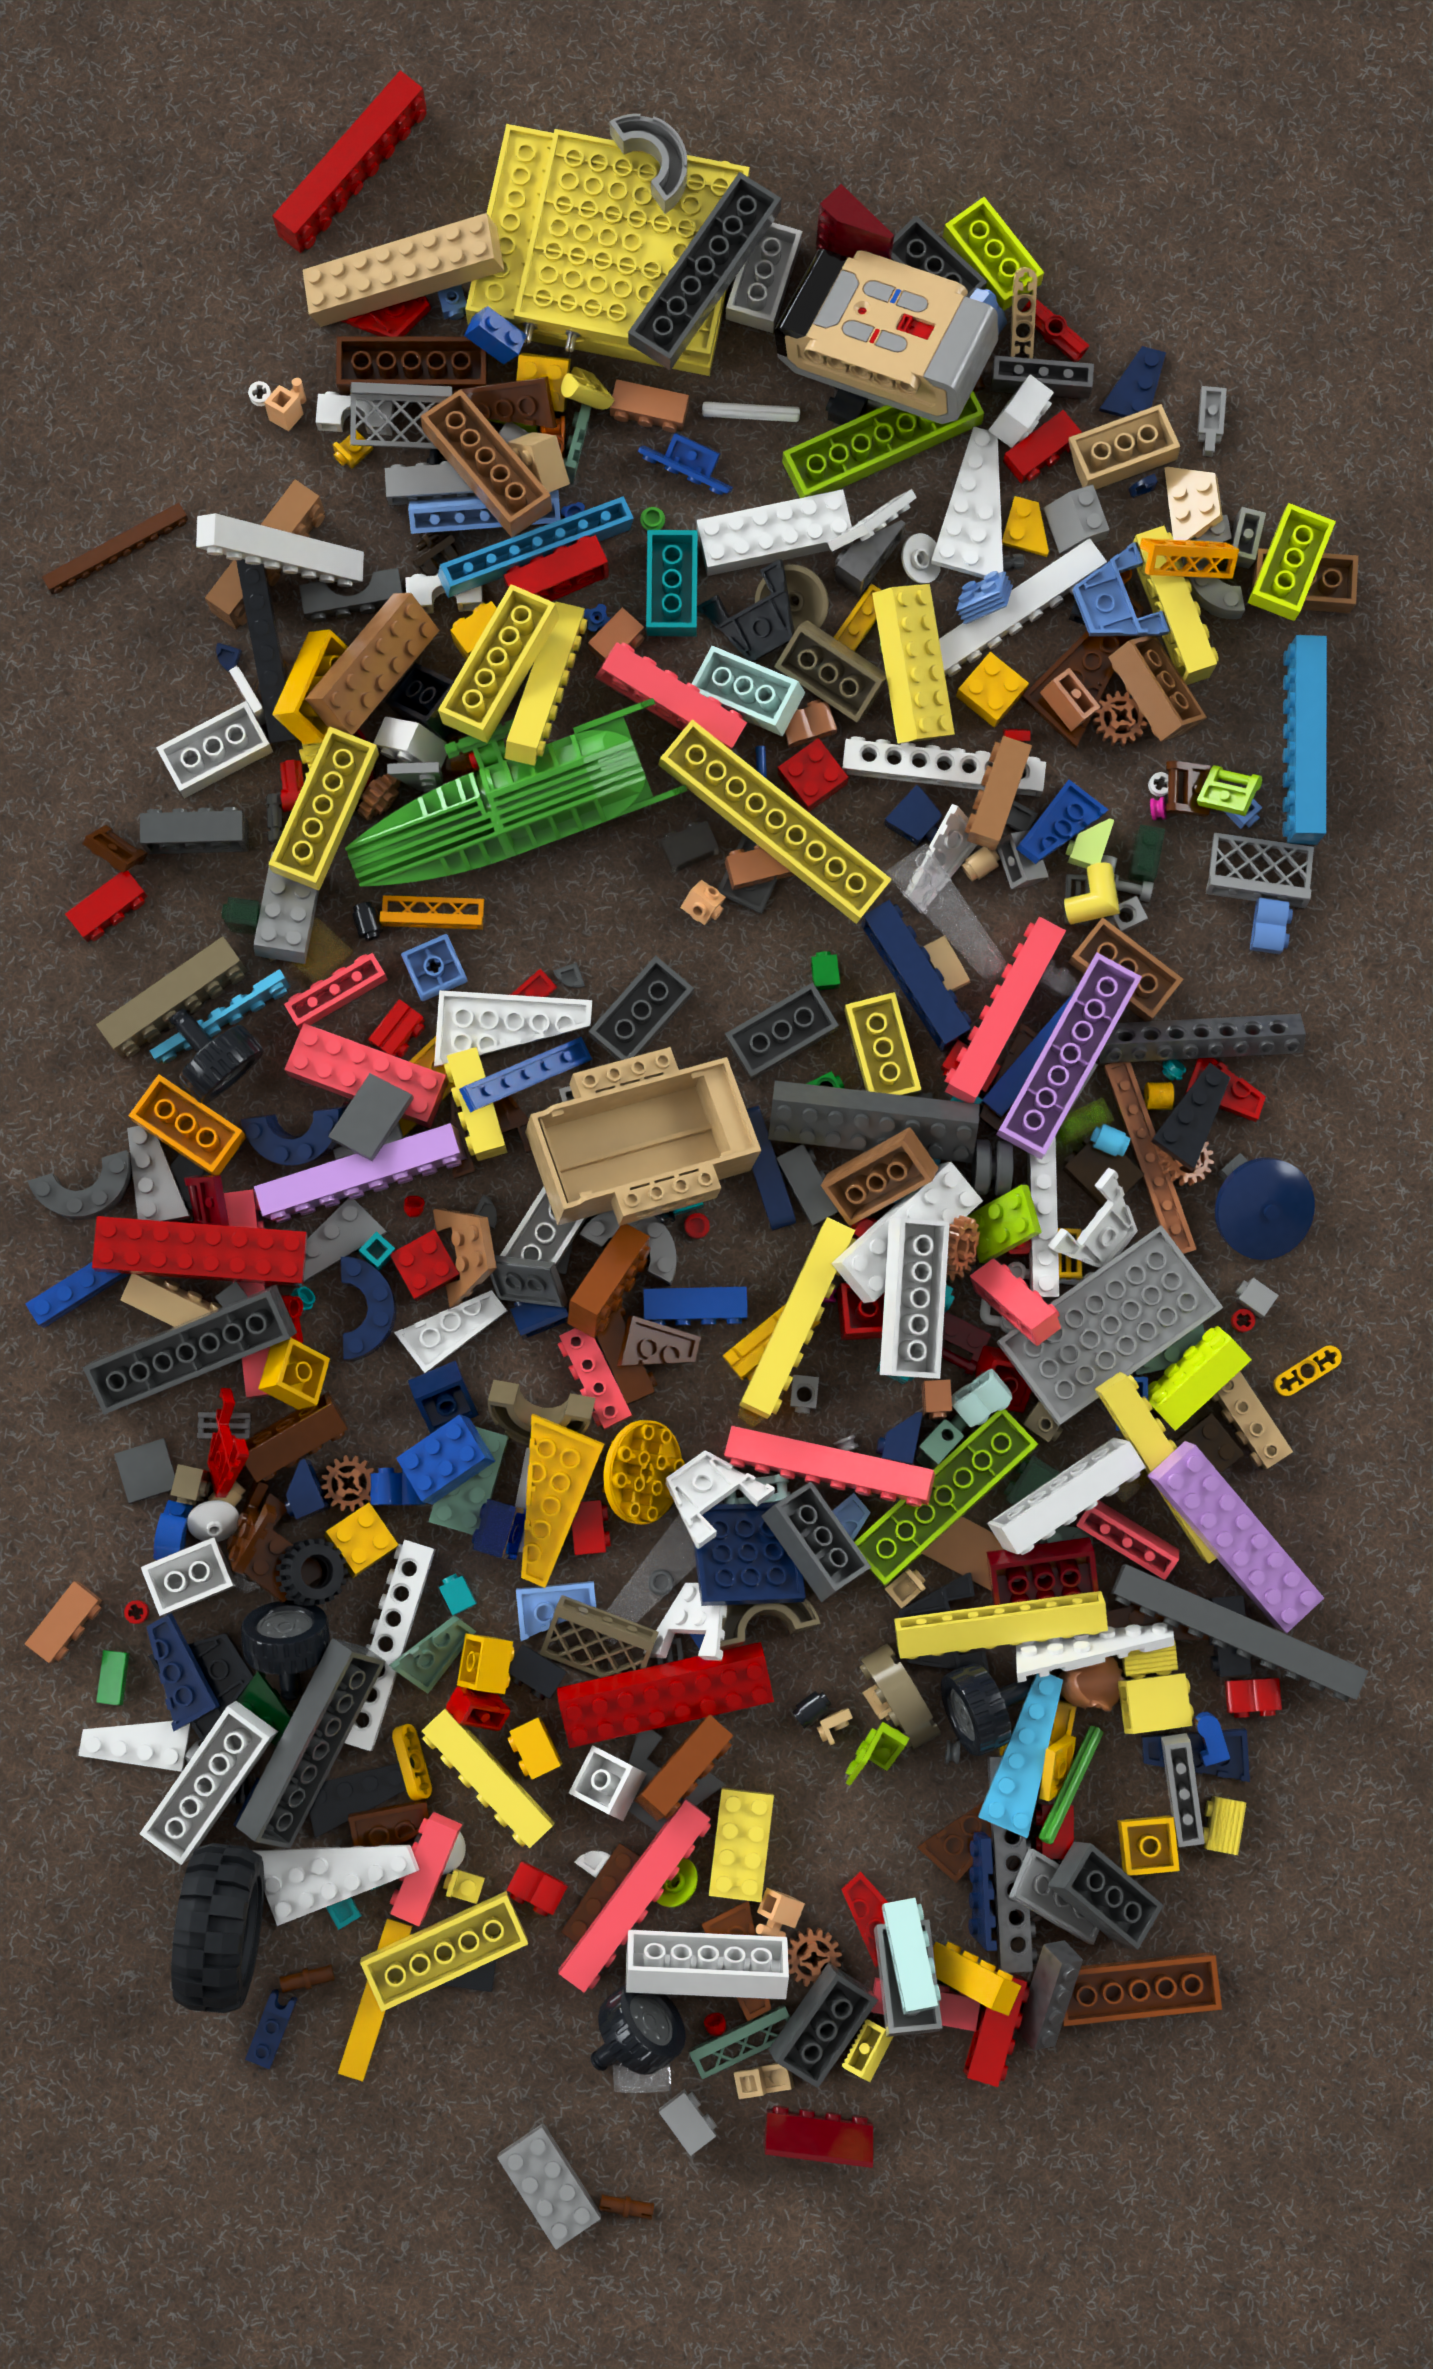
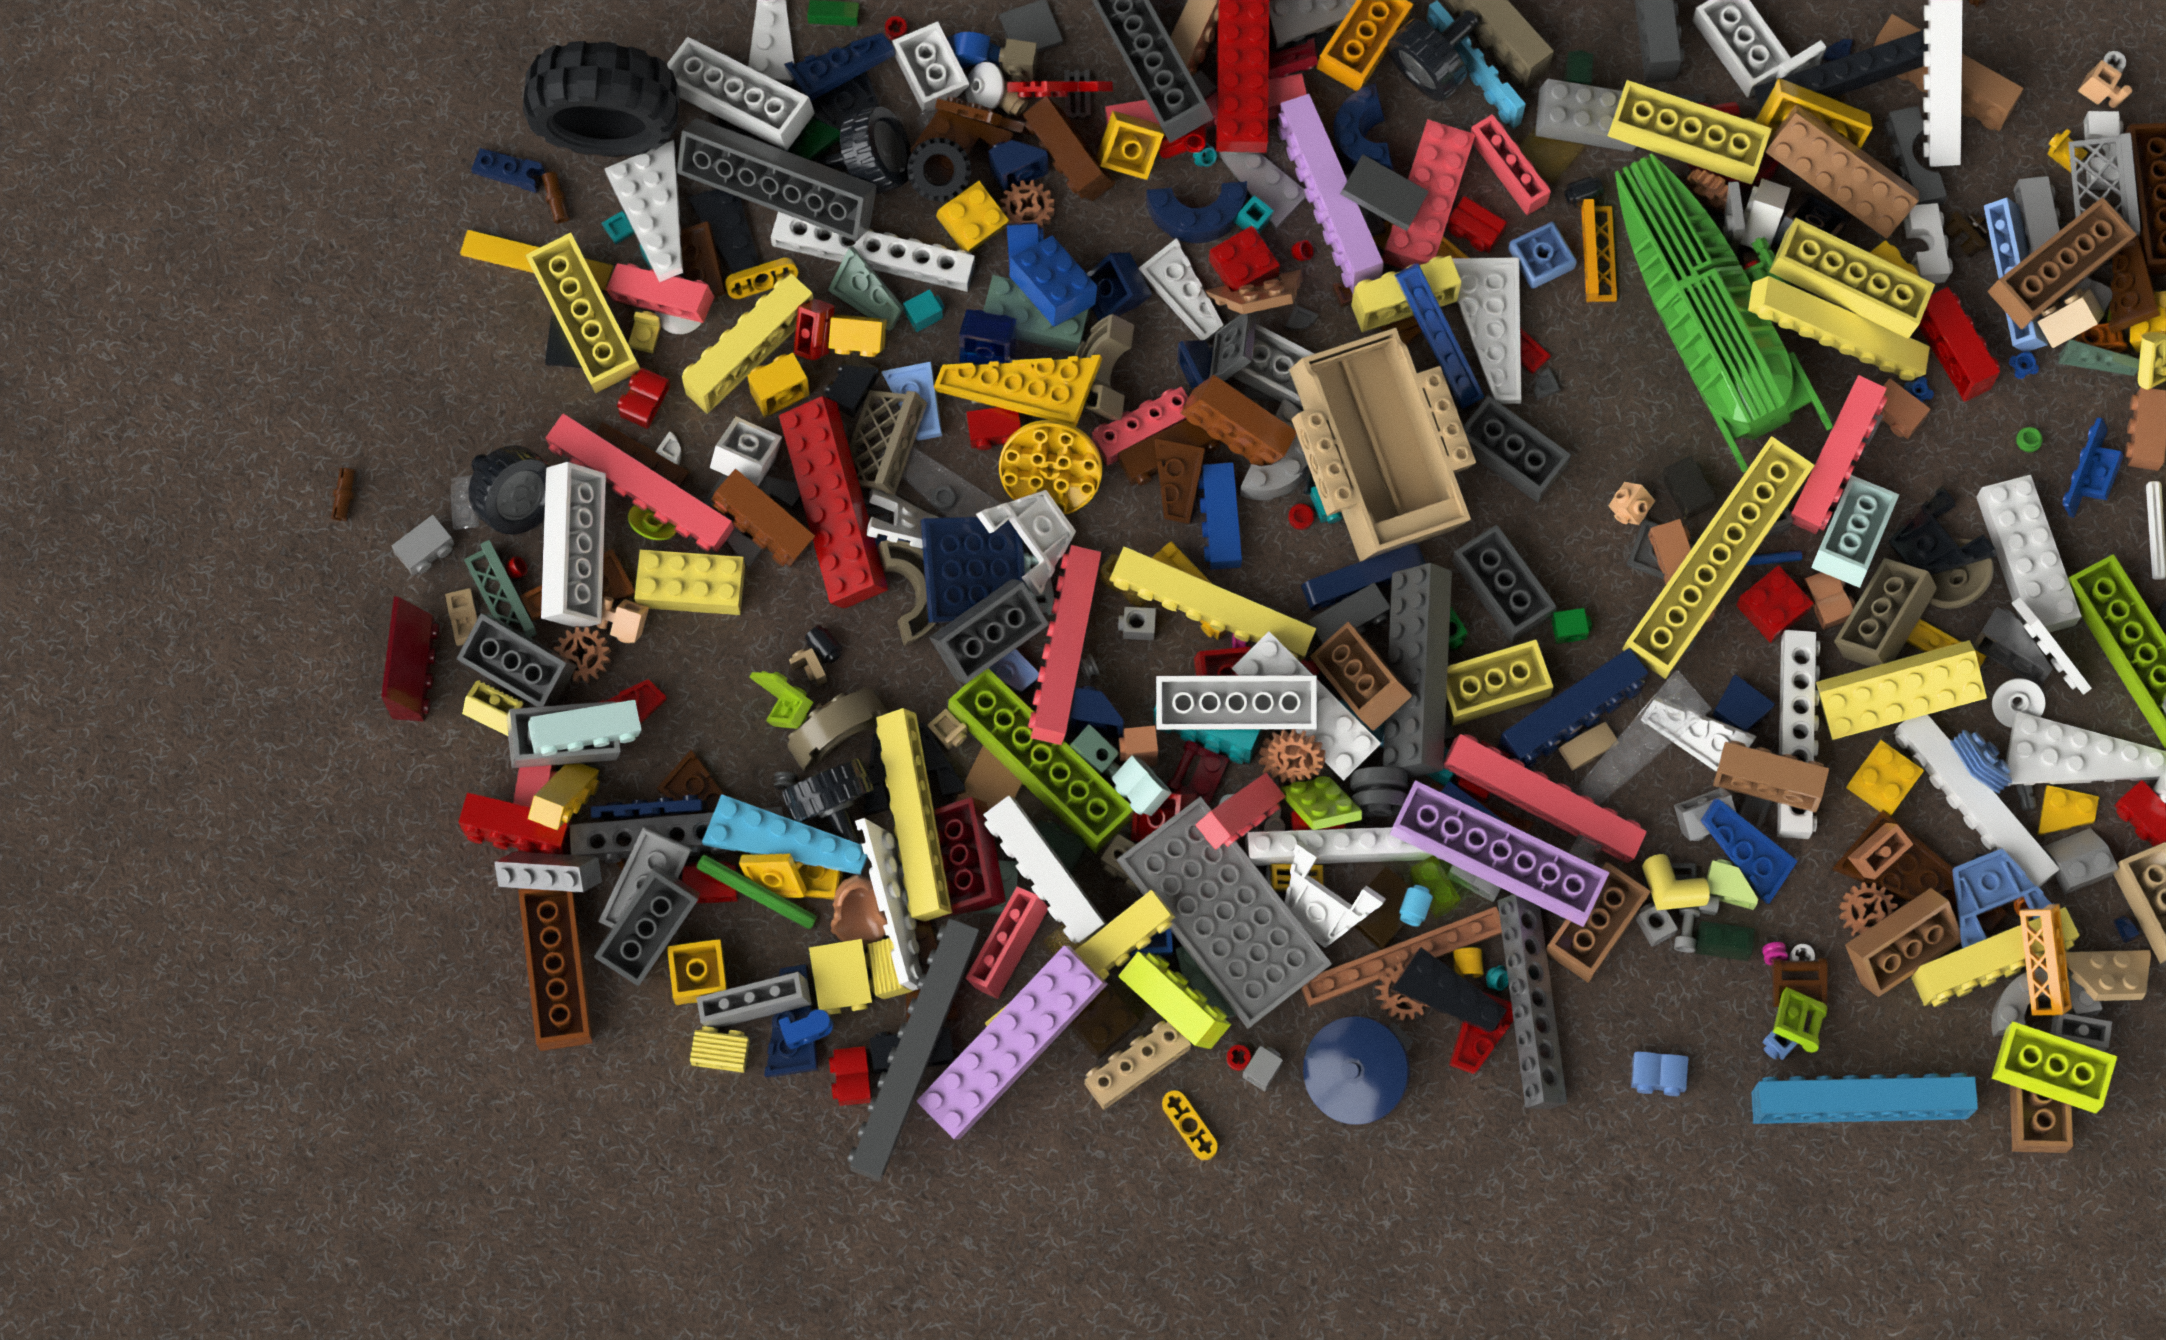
camera: 90 degrees right, 10 degrees down
(495, 560) = (1962, 279): dark azure brick -> none
(549, 2186) = (363, 421): light grey brick -> none
(672, 583) = (1961, 456): teal brick -> none
(980, 863) = (1698, 775): tan brick -> none
(1017, 734) = (1836, 806): red tile -> none
(1252, 889) = (1697, 1062): light grey fence -> none

